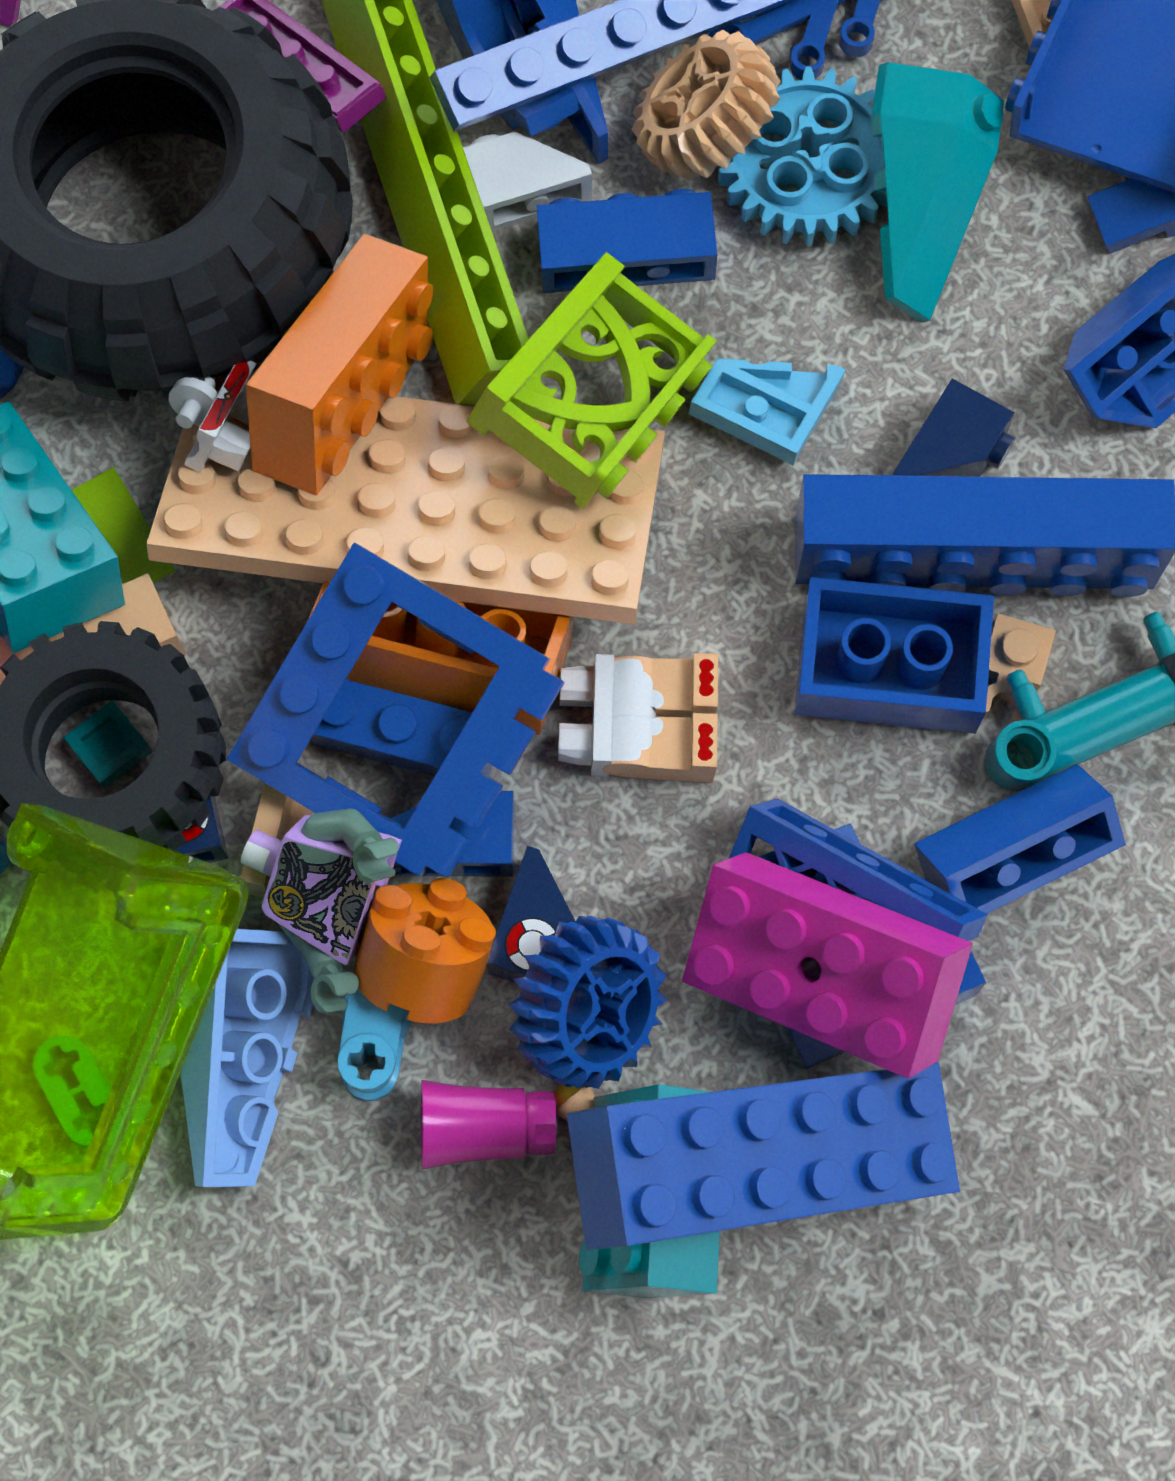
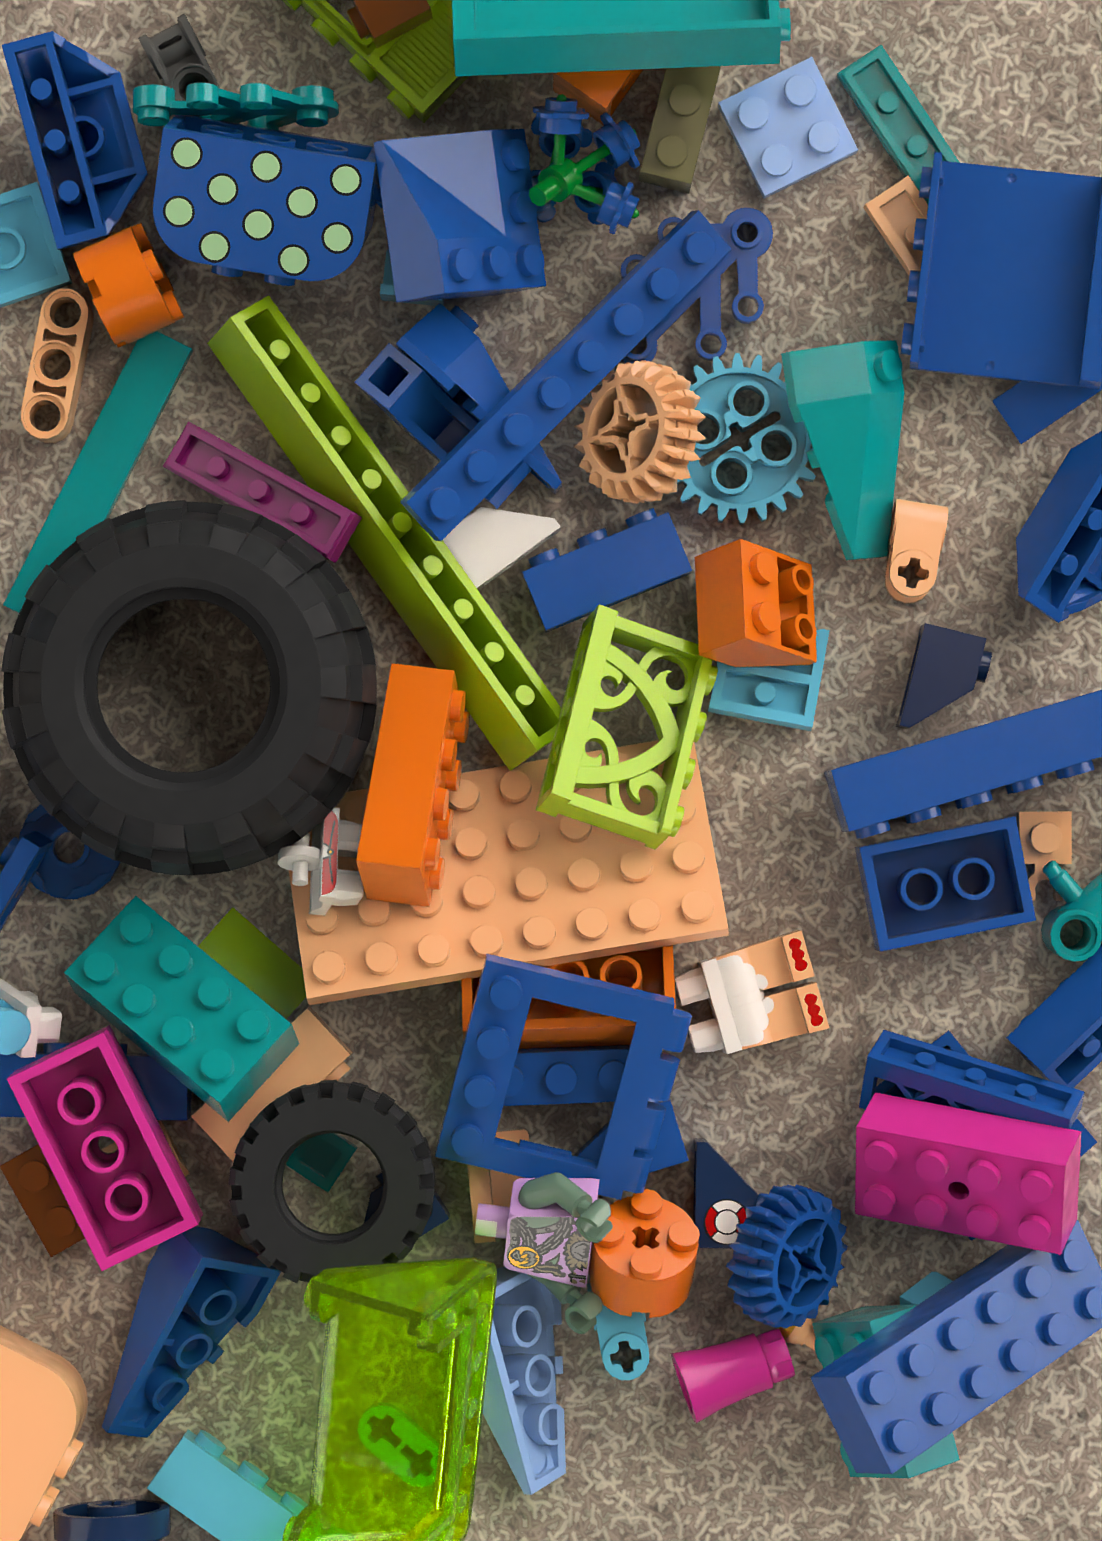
camera: 25 degrees left, 15 degrees up
(772, 313) = (754, 607): none -> orange slope
(961, 312) = (917, 541): none -> light nougat piece

